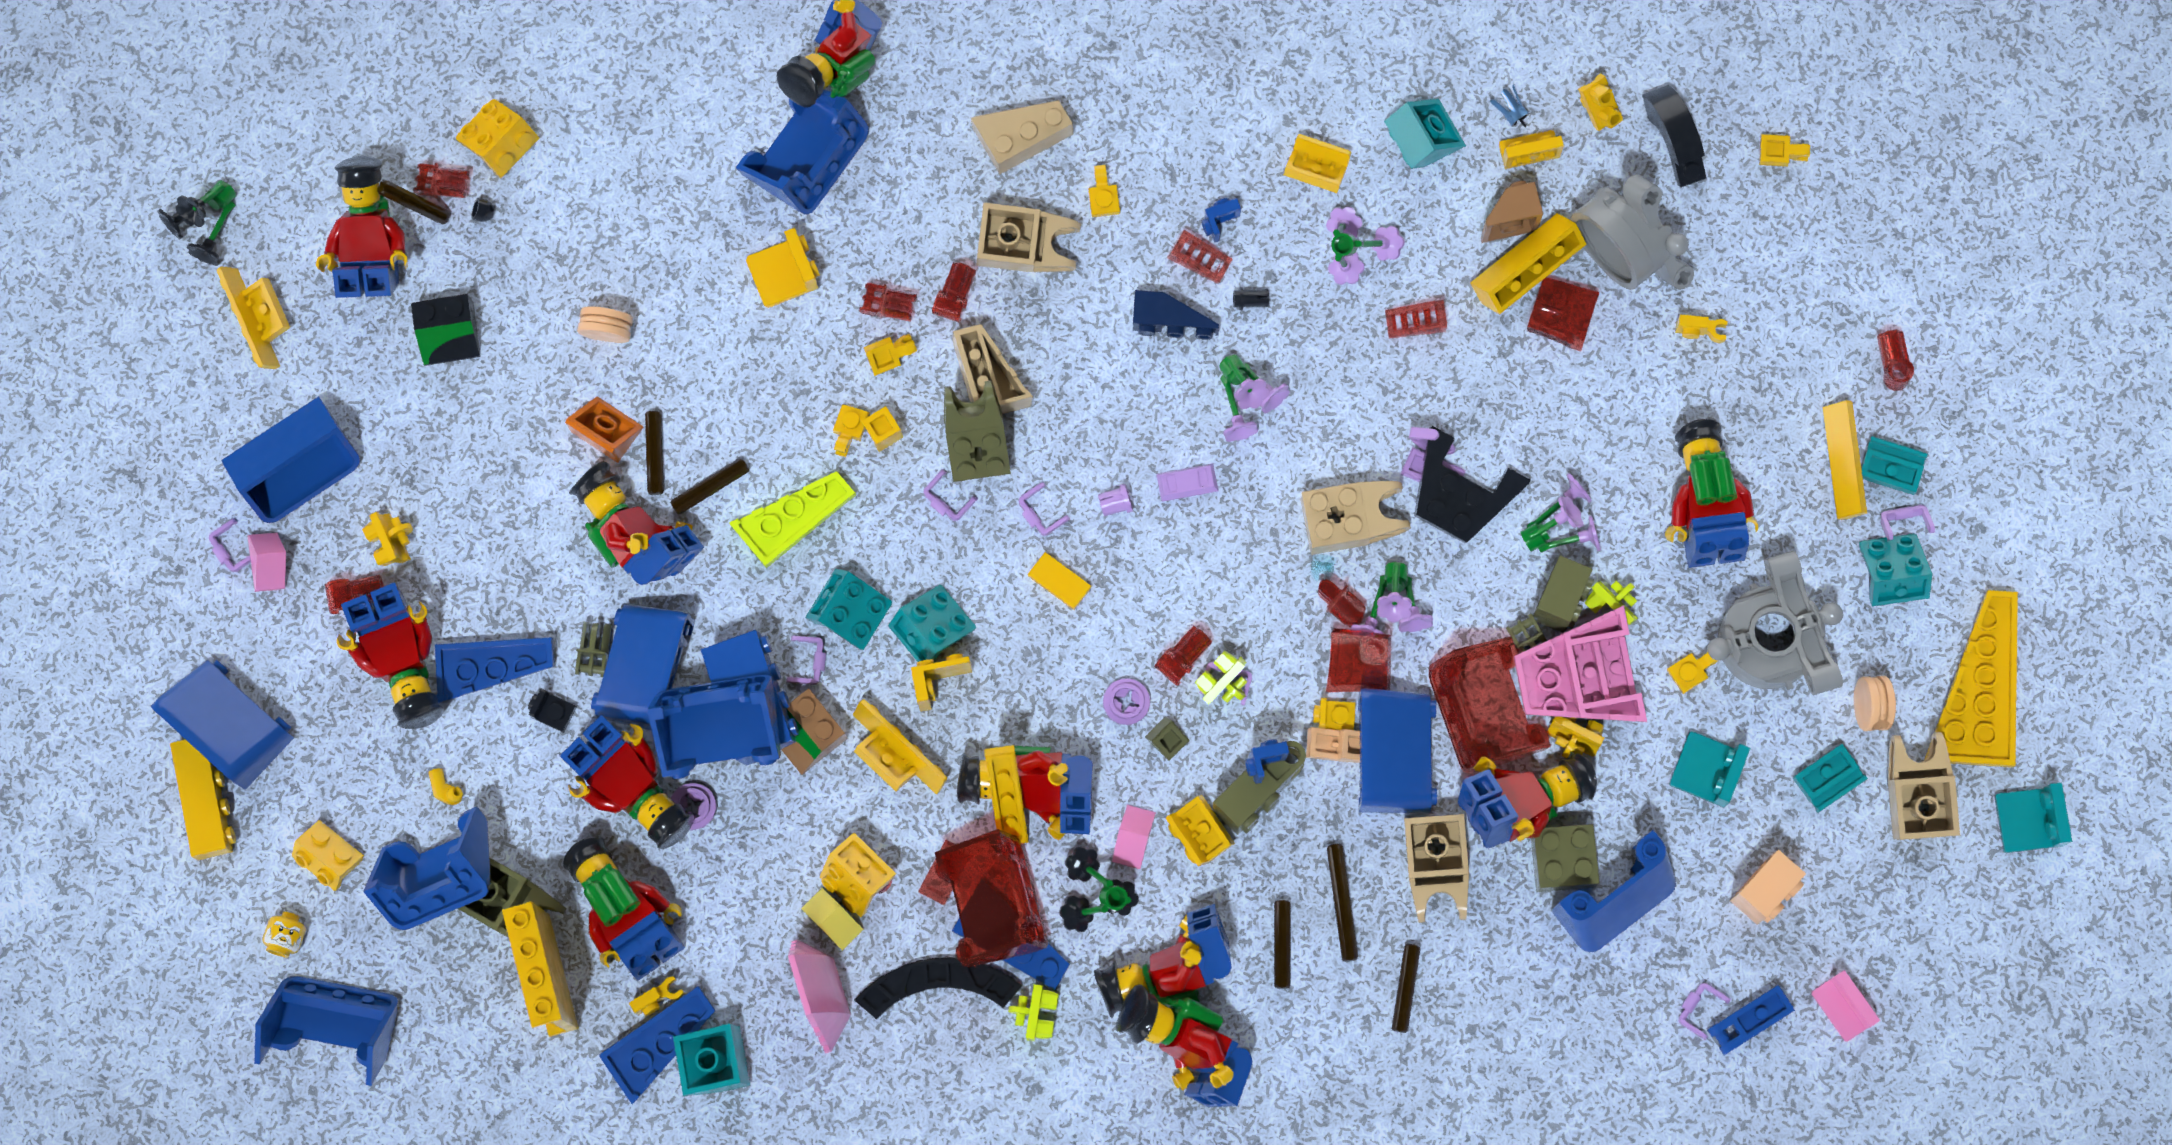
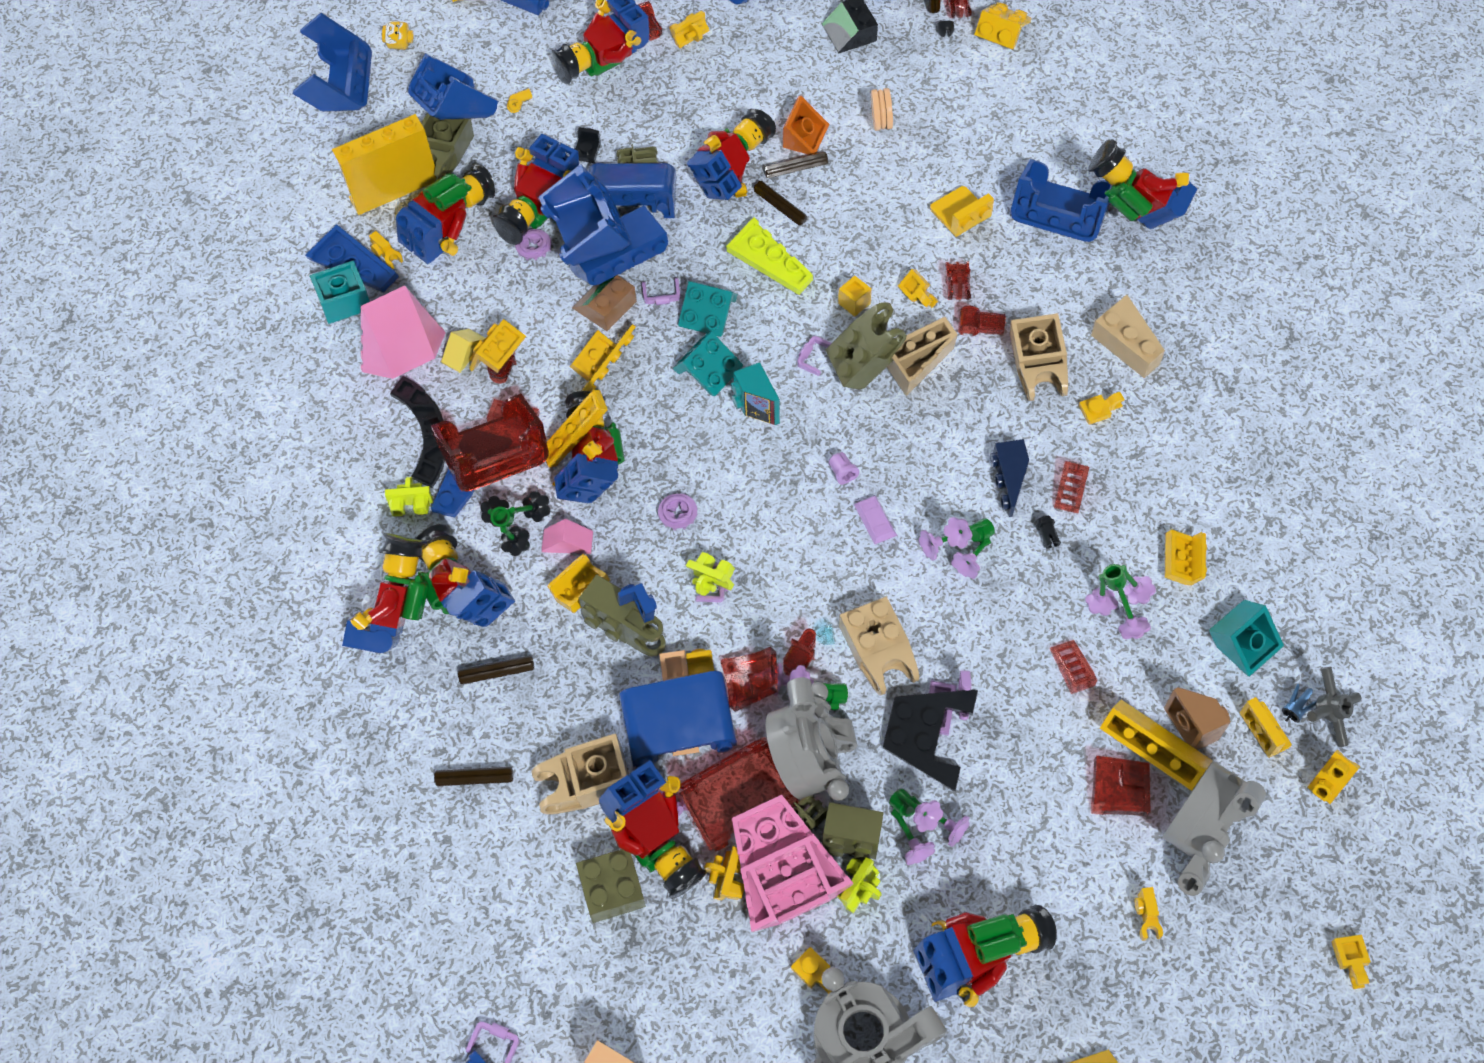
camera: 75 degrees right, 15 degrees down
(325, 855) = (459, 47): yellow bracket -> none
(480, 665) = (613, 104): blue wing -> none
(848, 427) = (836, 276): yellow plate -> none
(928, 670) = (657, 359): yellow bracket -> none
(1001, 575) = (756, 394): none -> teal slope
(1031, 516) = (815, 413): lavender piece -> none
(1059, 581) = (766, 444): yellow tile -> none
(1167, 738) = (653, 548): olive slope -> none
(1180, 659) = (719, 540): clear red piece -> none
(1220, 212) = (1112, 490): blue bracket -> none
(1342, 902) = (540, 709): dark brown axle -> none
(1471, 616) = (808, 740): none -> light grey piece
(1526, 74) = (1334, 706): none -> dark grey bar
(1596, 924) = (599, 963): blue windscreen -> none
(1679, 132) = (1327, 853): black arch -> none
(1709, 769) = (722, 1003): teal bracket -> none

